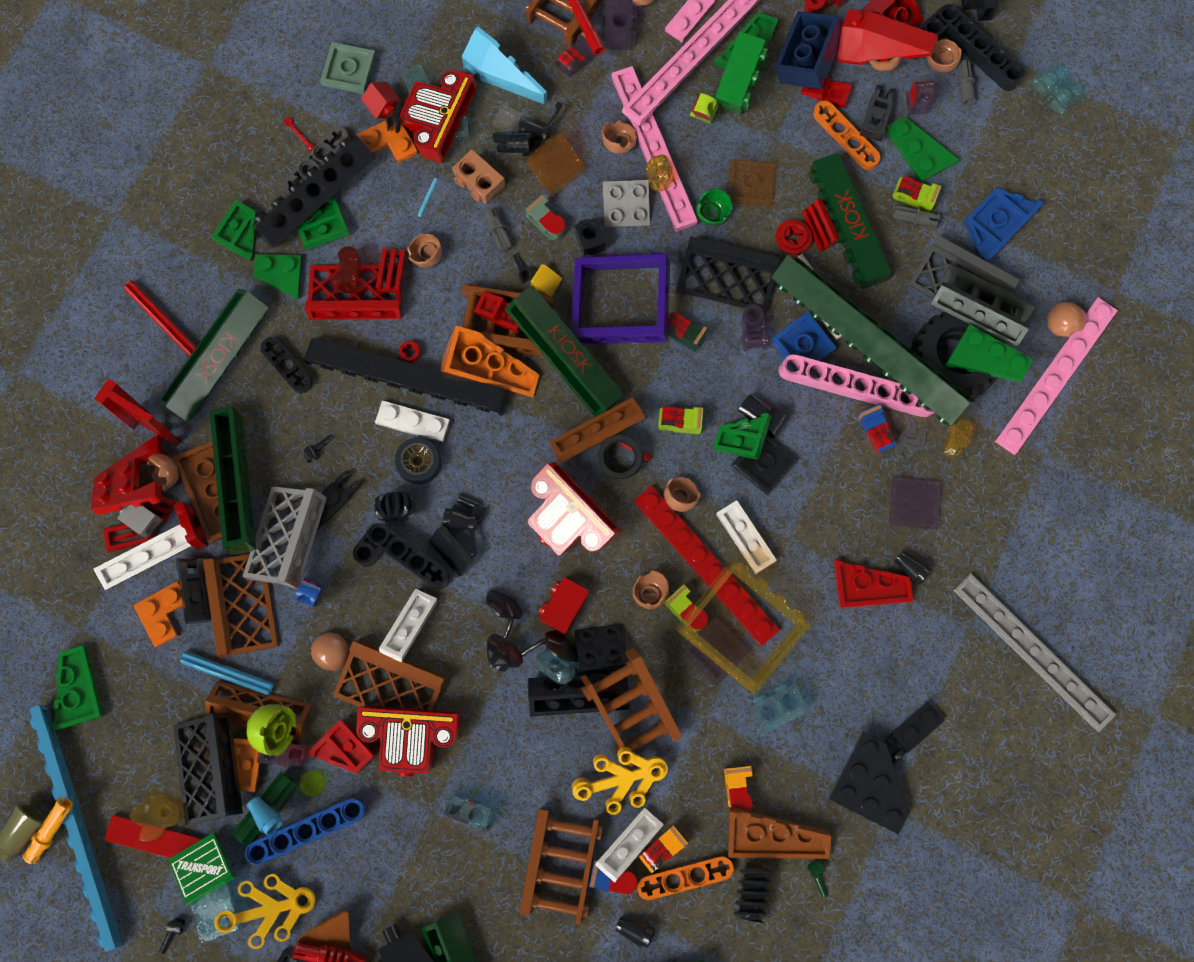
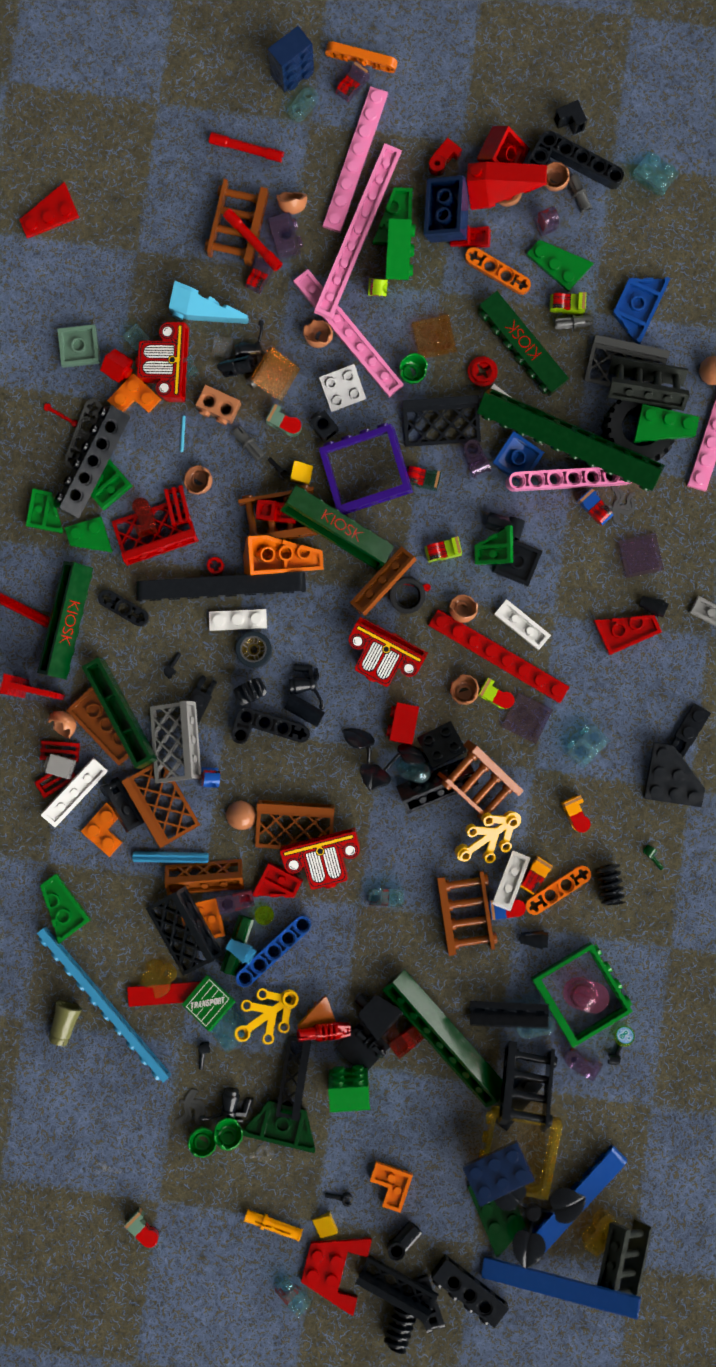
camera: 20 degrees left, 10 degrees up
(43, 838) = (84, 1021): light orange pin -> none
(120, 482) = (33, 745): red wing -> none
(187, 516) = (94, 751): red wing -> none
(270, 729) = (222, 888): lime cylinder -> none
(393, 120) = (134, 380): black hand -> none
(408, 625) = (293, 777): white plate -> none
(659, 173) = (361, 356): clear yellow rock -> none
(769, 837) = (613, 840): dark orange wing -> none
(777, 601) = (575, 704): clear yellow window -> none
(818, 227) = (498, 356): red tile -> none
(877, 115) = (517, 246): black hinge -> none
(958, 438) = (659, 495): clear yellow rock -> none

